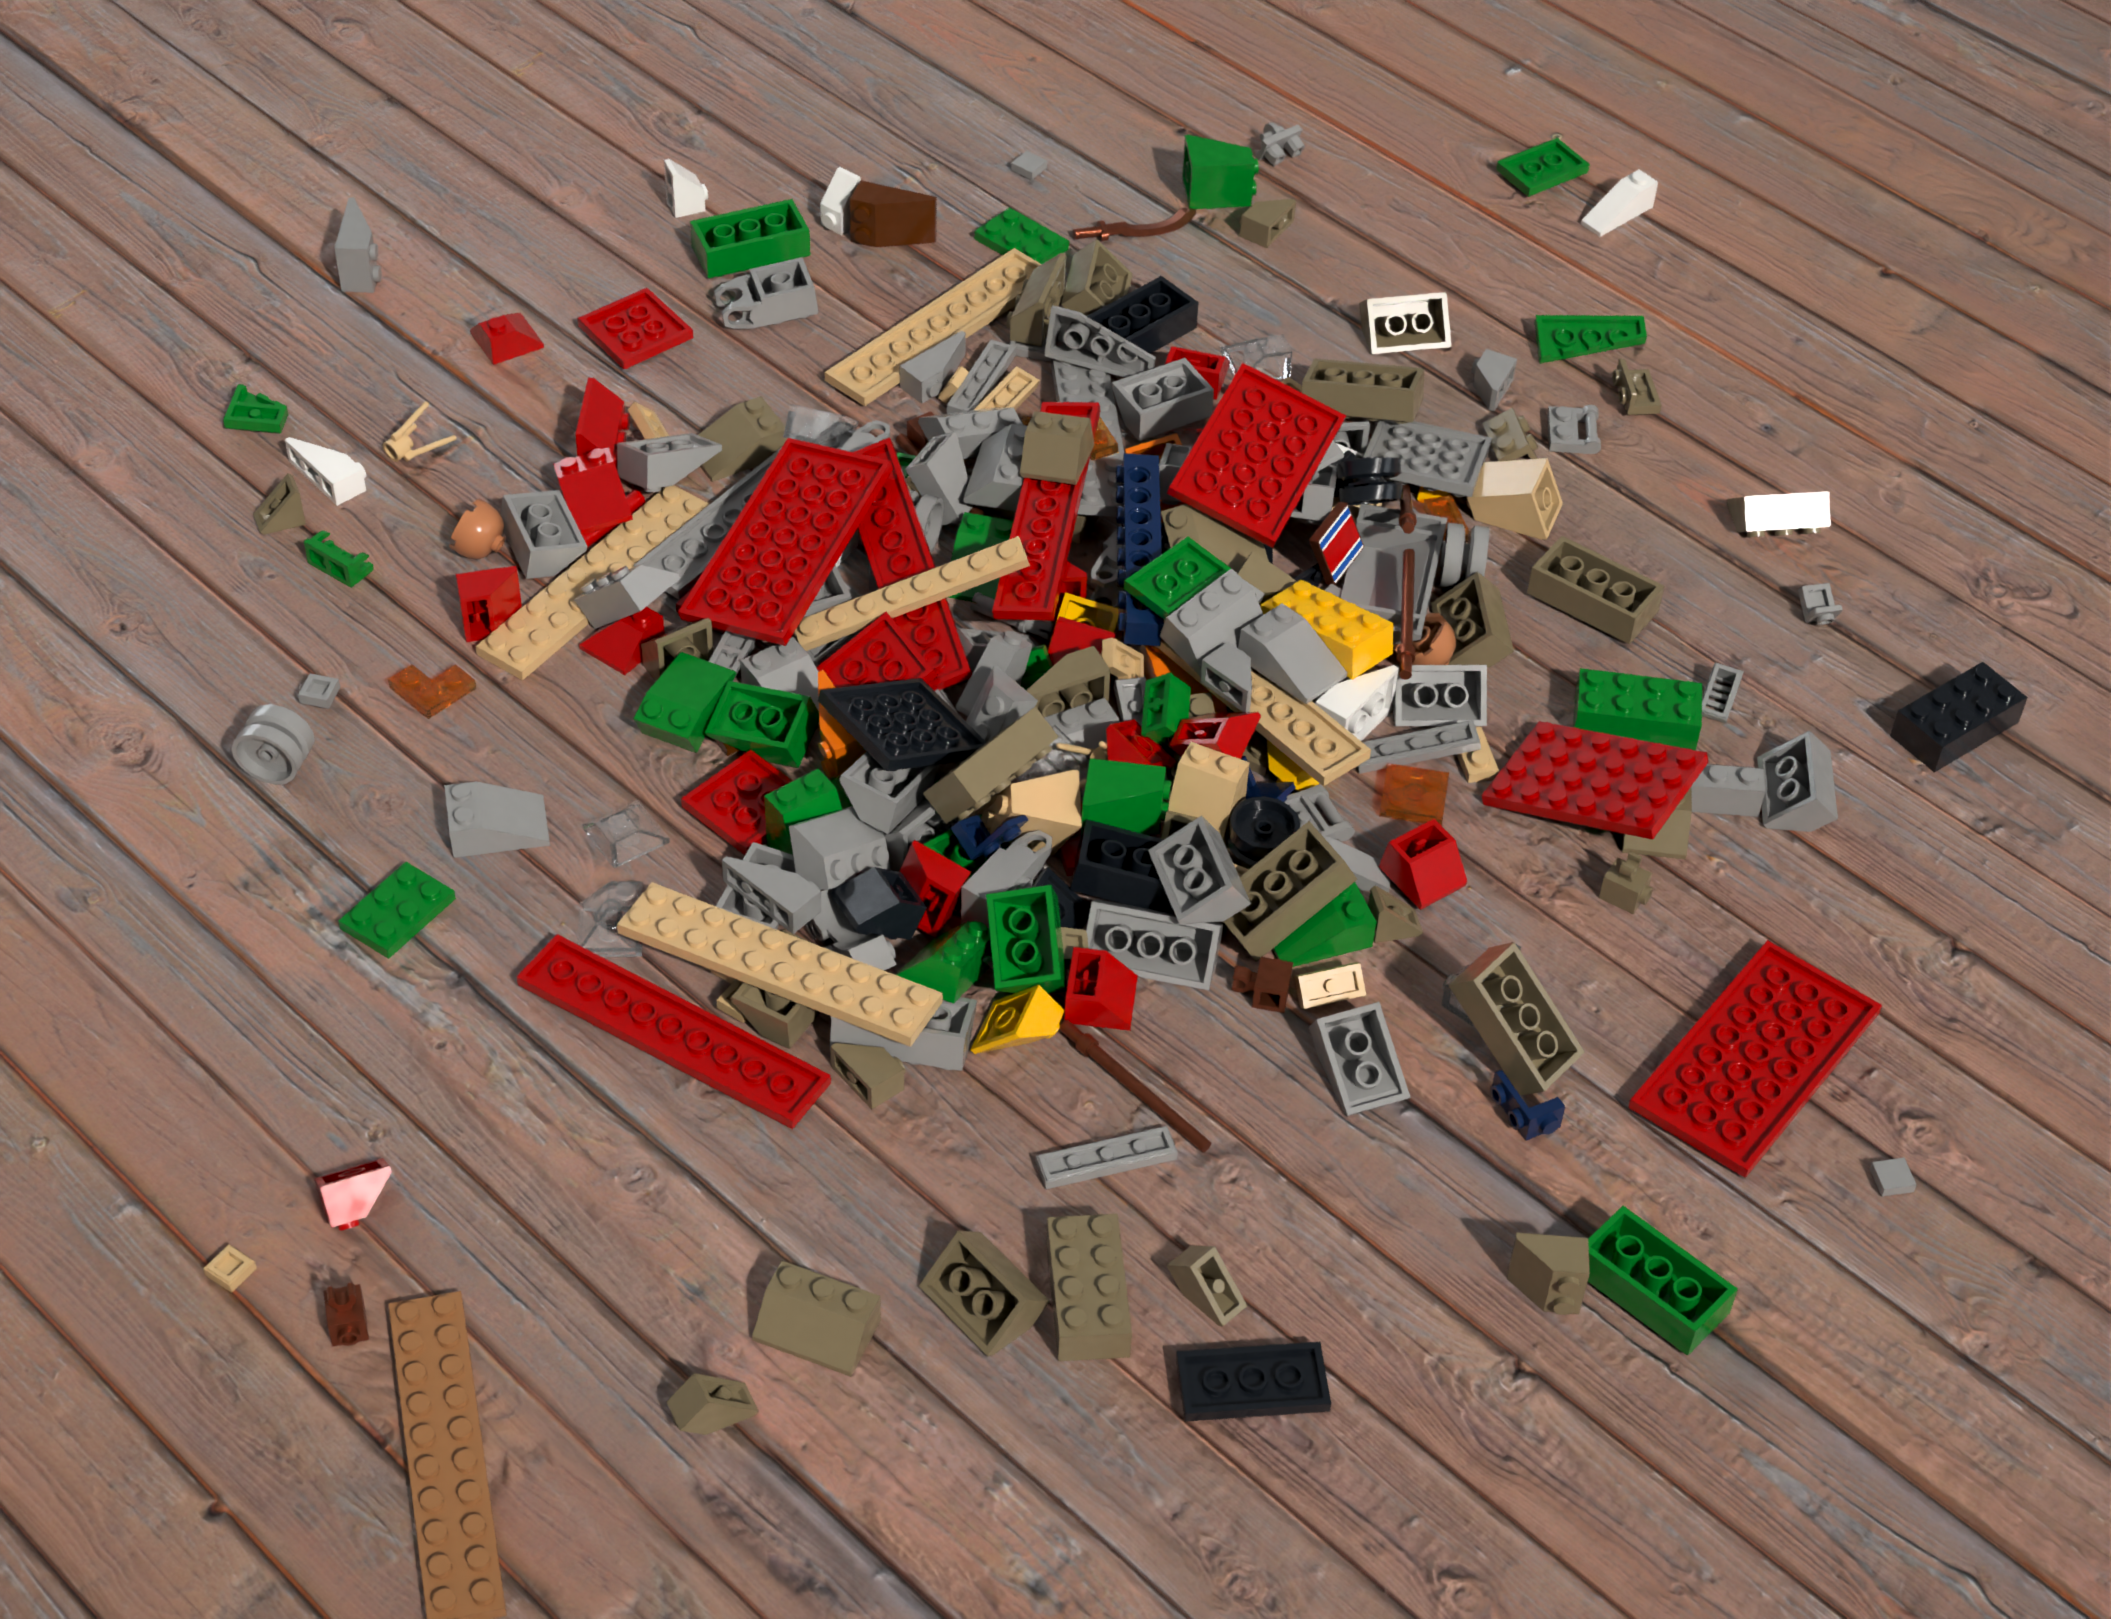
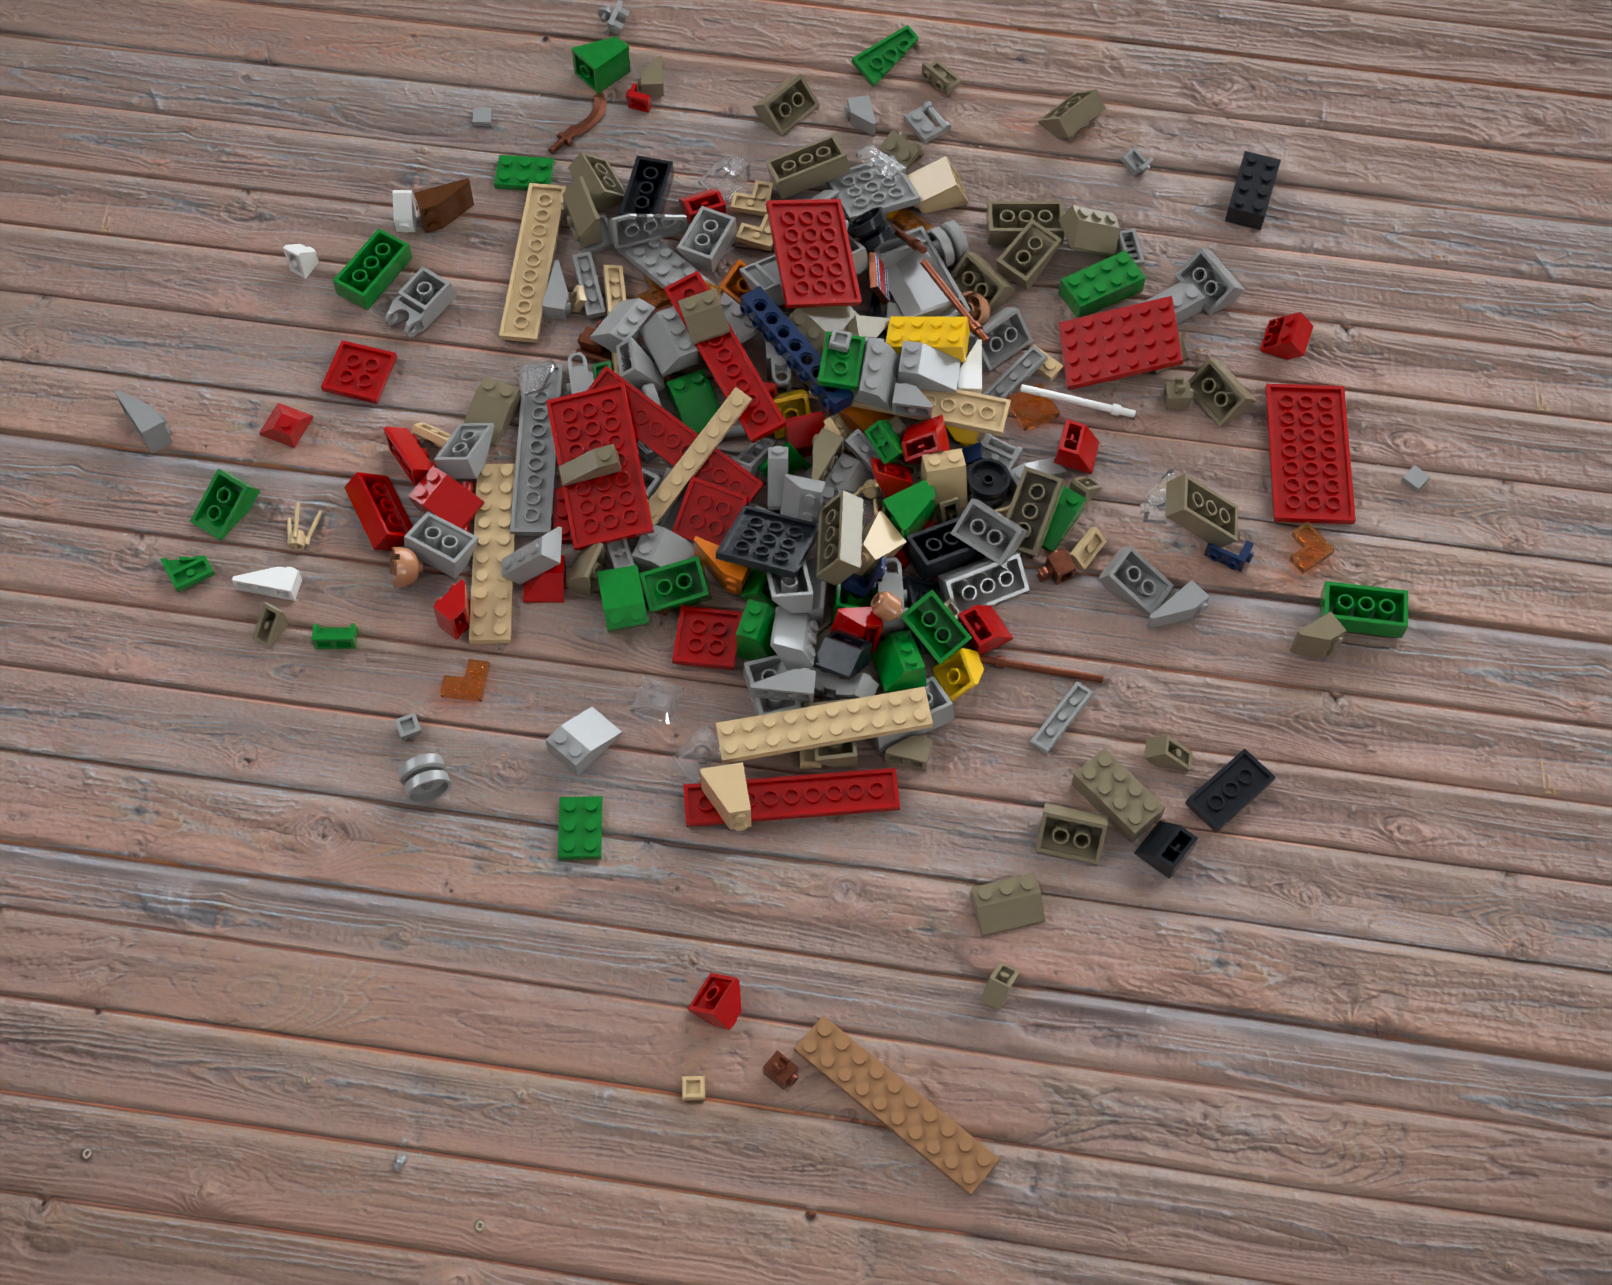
camera: 35 degrees left, 15 degrees up
(360, 370) = (224, 504): none -> green slope
(515, 460) = (378, 510): none -> red slope
(590, 965) = (728, 793): none -> tan slope
(774, 527) = (591, 465): none -> dark tan slope
(976, 871) = (886, 606): none -> nougat head
(1094, 1393) = (1166, 847): none -> black slope
(1193, 553) = (840, 340): none -> light grey tile
(1226, 232) = (638, 100): none -> red bracket
(1394, 1124) = (1181, 606): none -> light grey slope
(1465, 433) = (881, 162): none -> clear tile
(1522, 855) = (1114, 409): none -> white bar
(1561, 621) = (1028, 254): none -> dark tan slope
(1654, 1171) = (1314, 548): none -> clear orange plate
(1673, 636) = (1091, 230): none -> dark tan slope
(1691, 914) = (1220, 392): none -> dark tan slope
(1852, 904) = (1287, 336): none -> red slope

